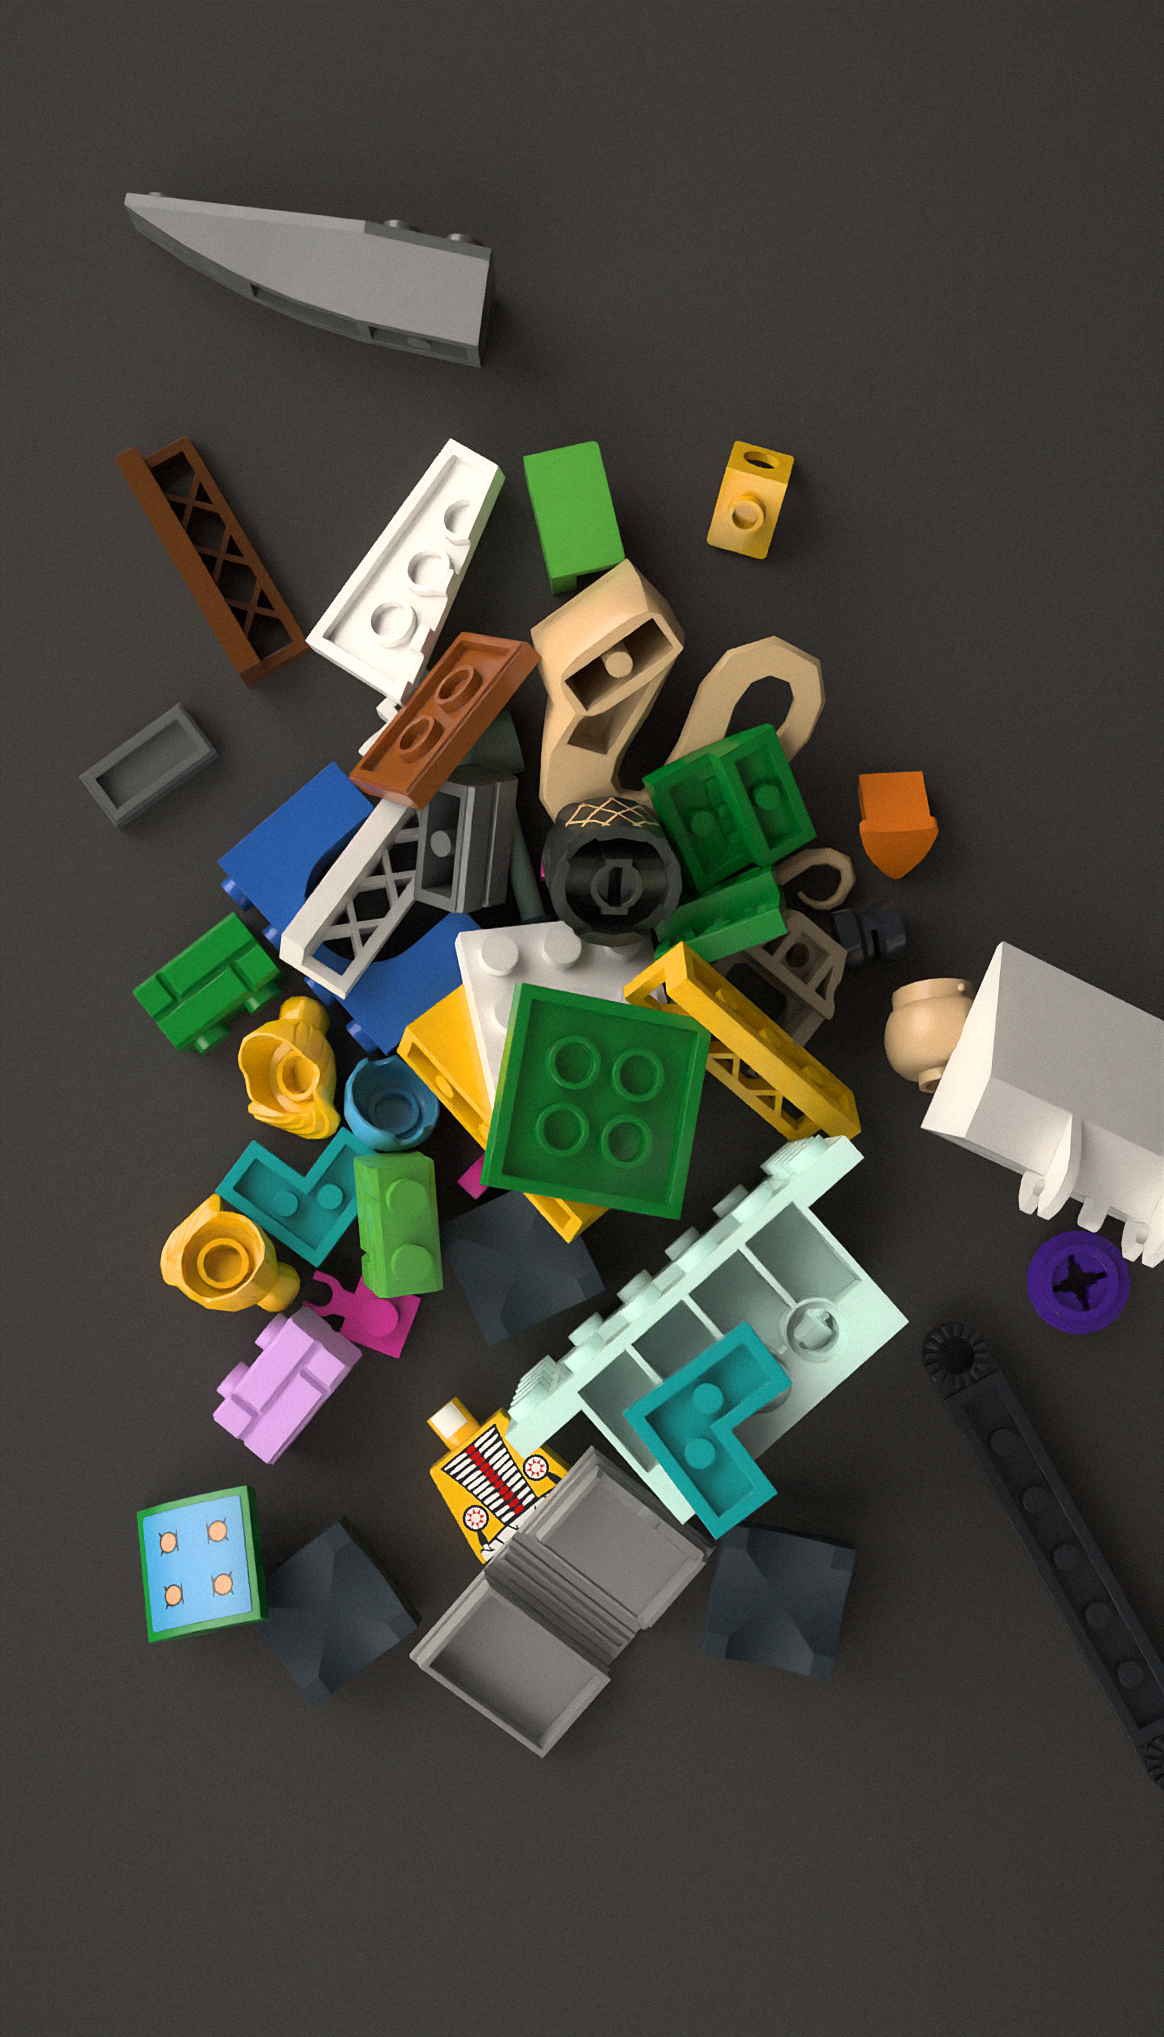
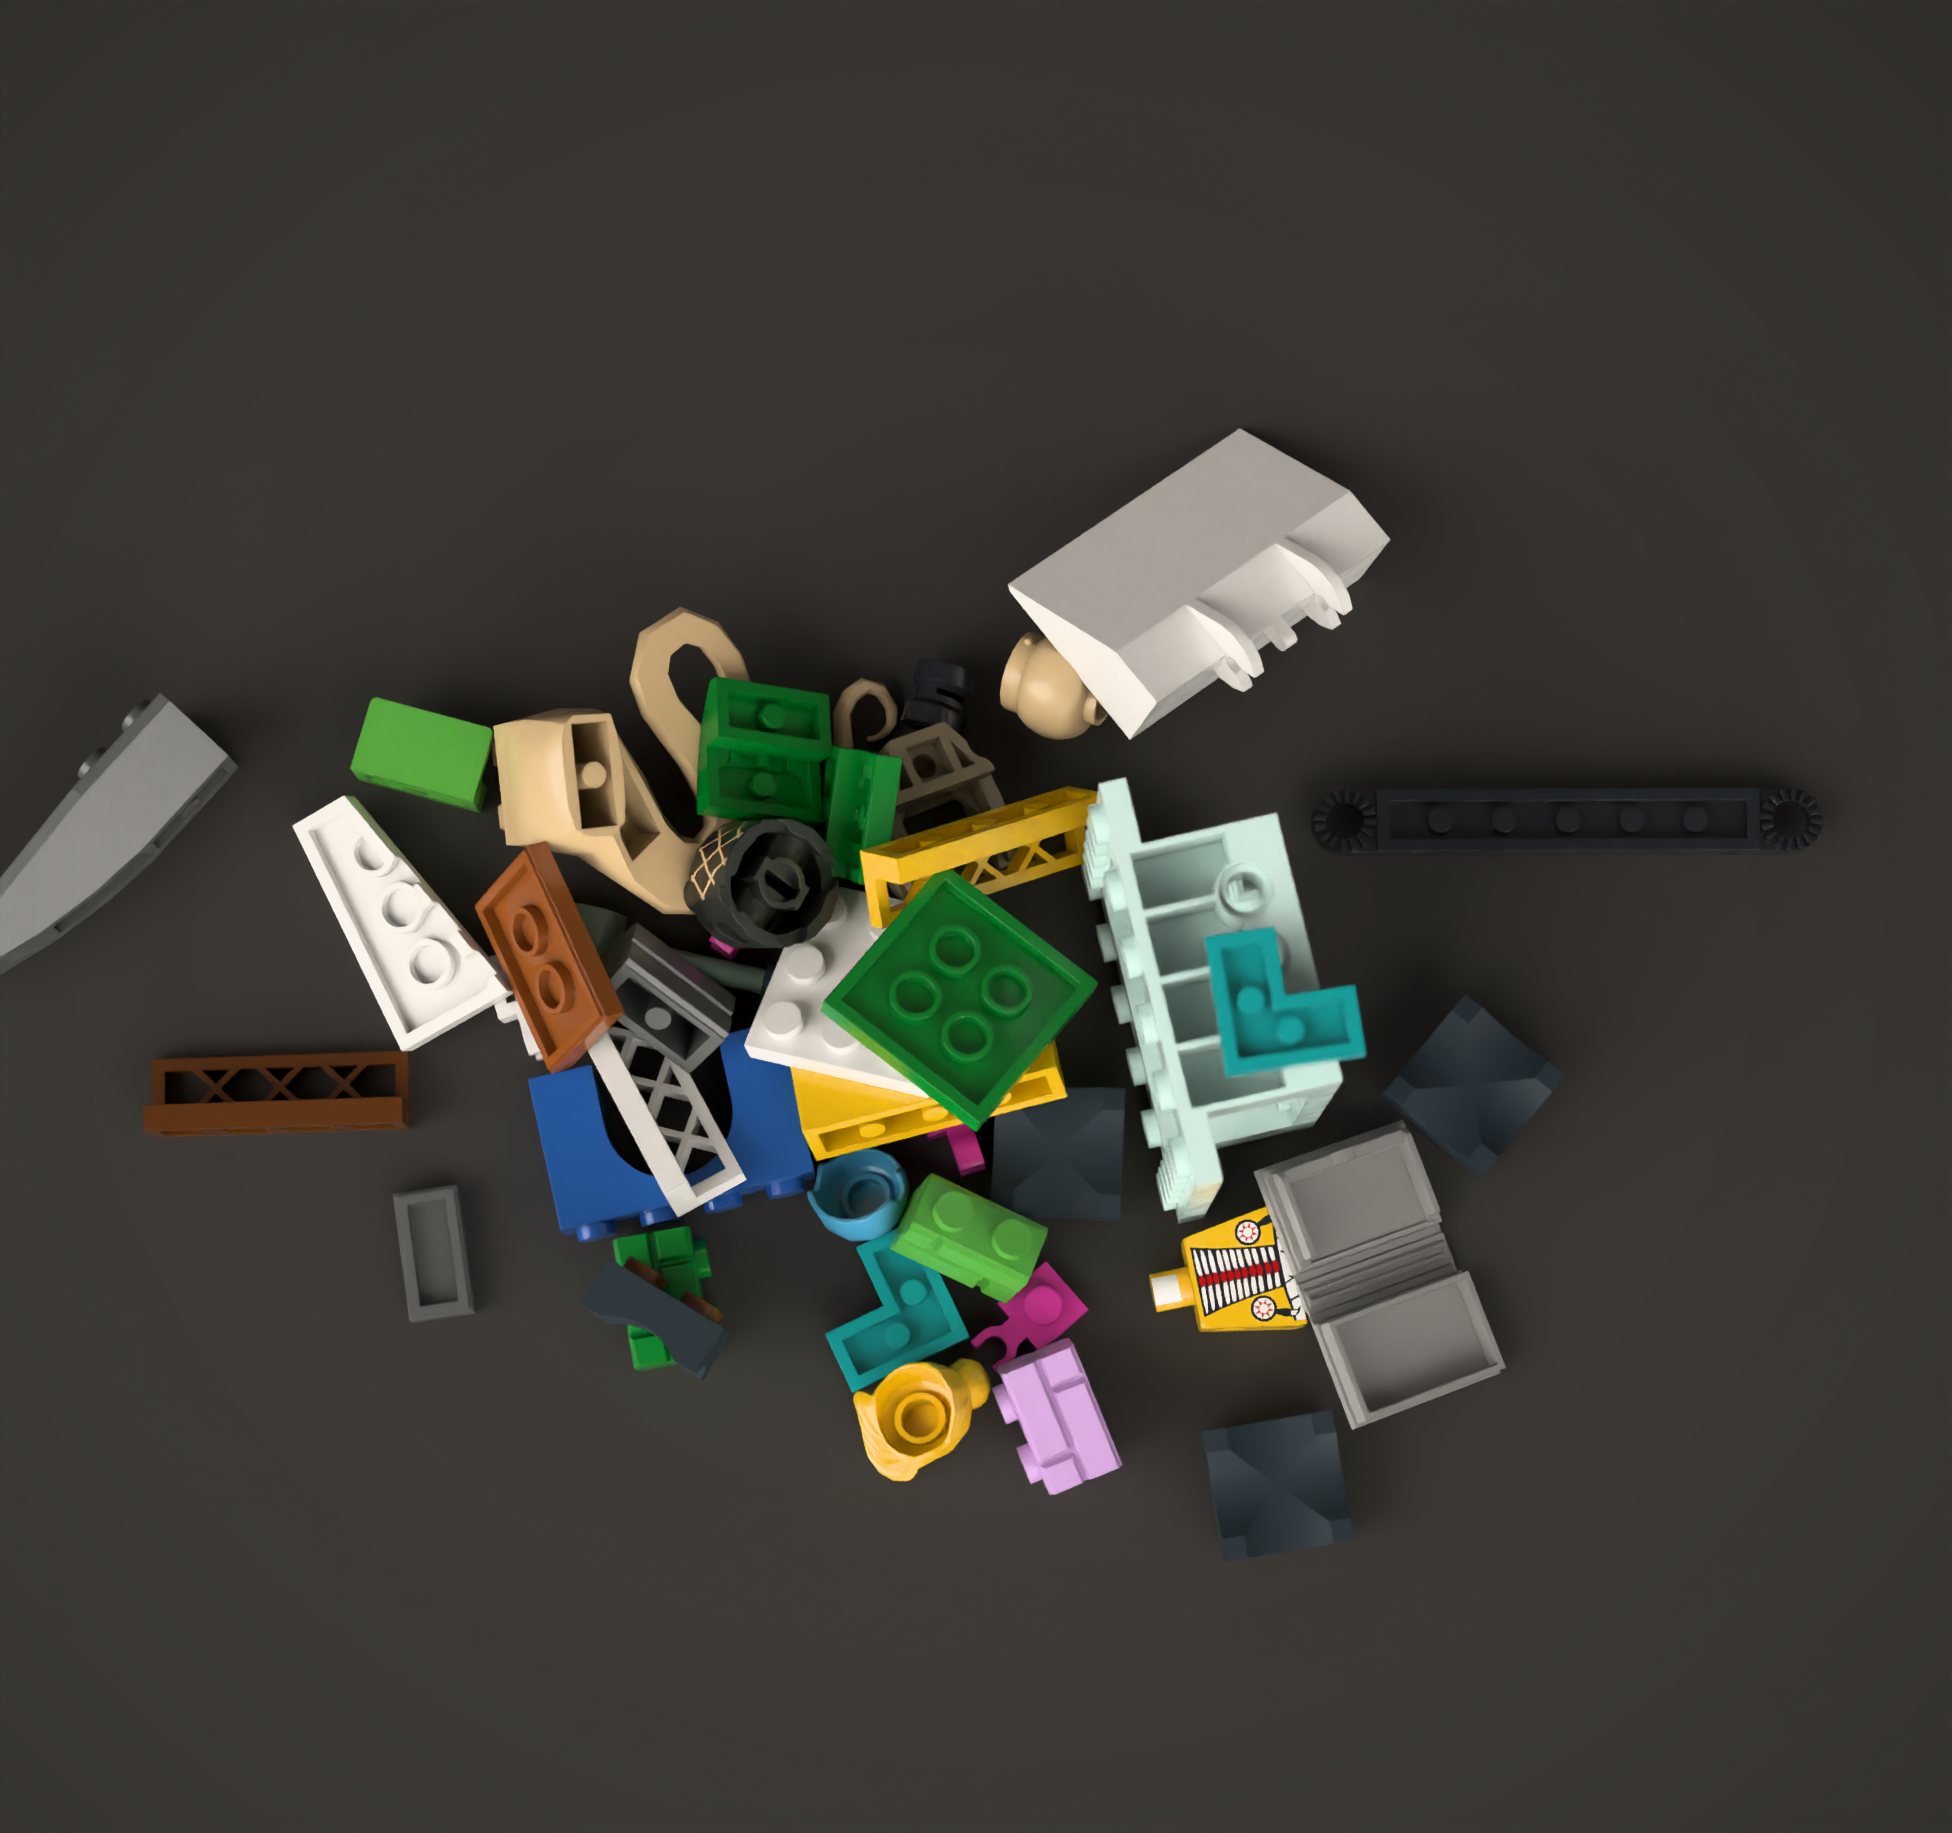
camera: 65 degrees left, 5 degrees down
(176, 975) = (636, 1298): none -> black brick
(202, 1564) = (1176, 1577): slope -> none
(292, 1071) = (784, 1265): yellow hair -> none
(749, 500) = (496, 593): yellow bracket -> none
(895, 820) = (850, 621): orange tile -> none
(1104, 1296) = (1363, 669): dark purple gear -> none

